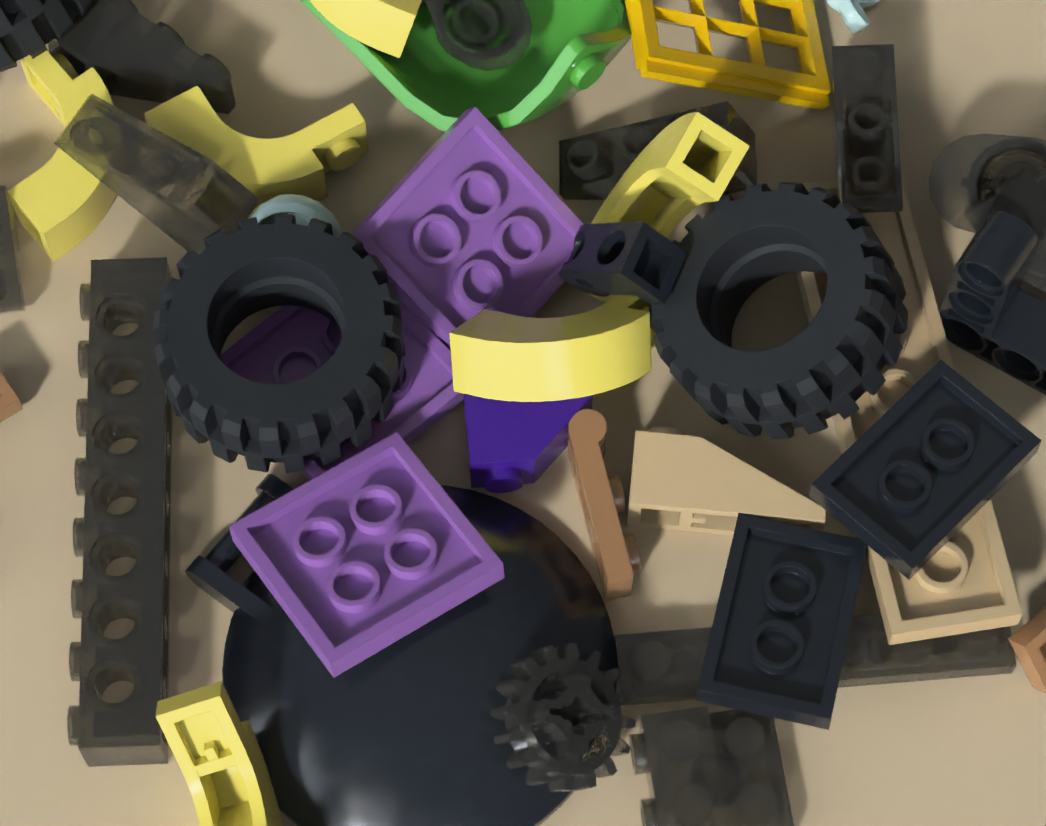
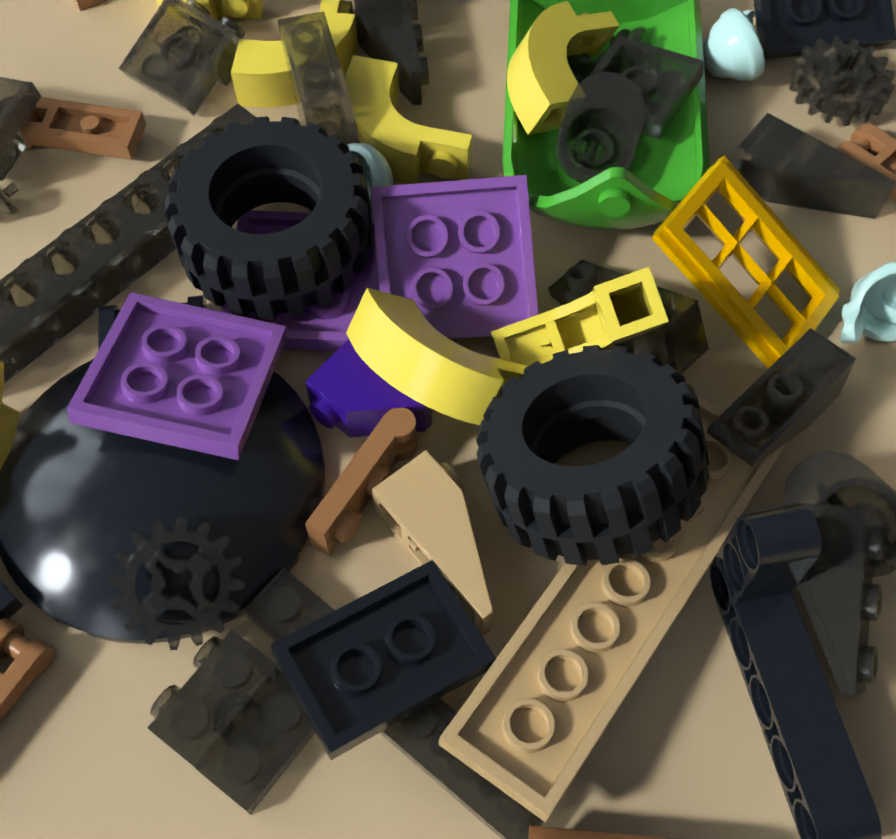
camera: 45 degrees right, 5 degrees down
(623, 261) = (520, 336): black leg -> none
(924, 469) = (583, 646): black plate -> none

